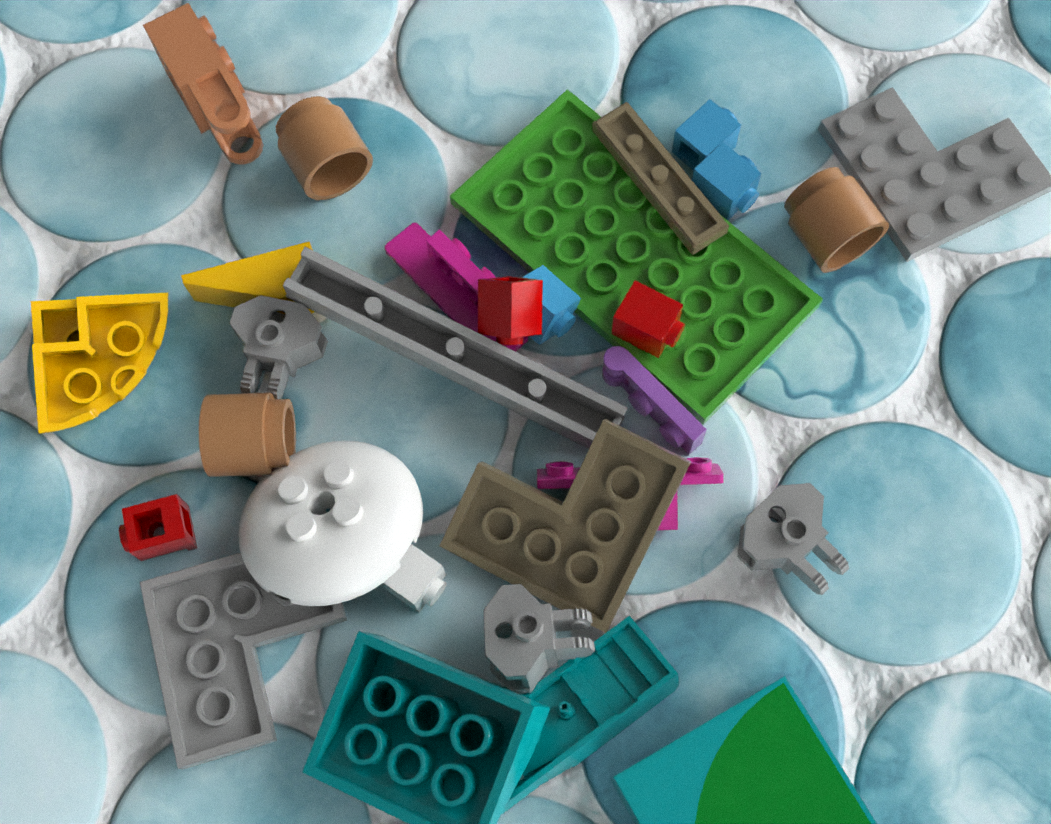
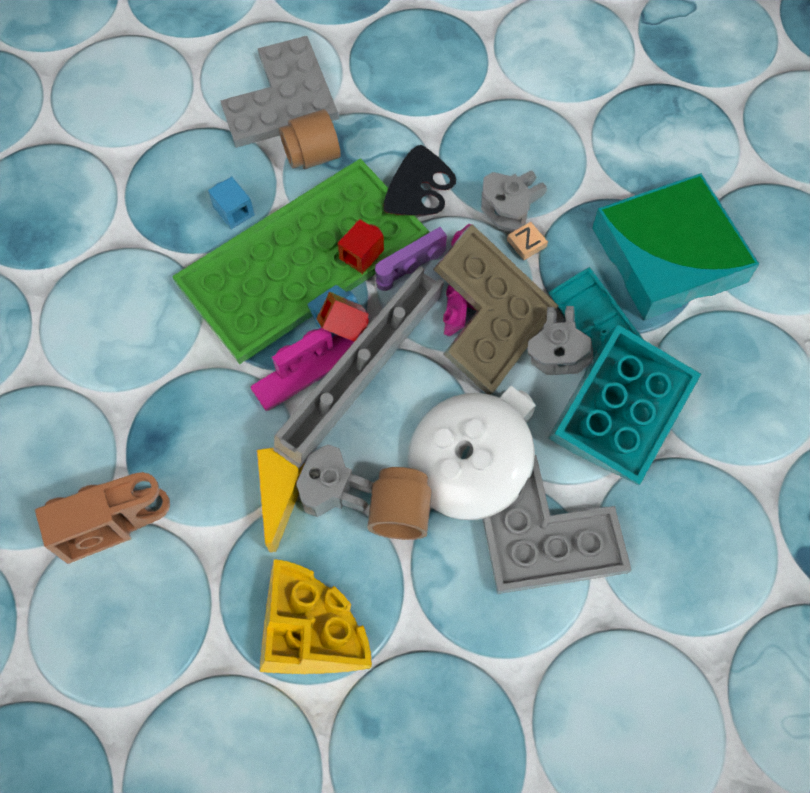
camera: 85 degrees left, 5 degrees down
(145, 518) = (463, 566): red brick -> none
(322, 148) = (178, 437): medium nougat piece -> none
(660, 178) = (256, 229): dark tan tile -> none
(724, 576) = (527, 241): none -> light nougat tile
(727, 181) = (267, 194): dark azure brick -> none
(781, 375) = (405, 189): none -> black piece

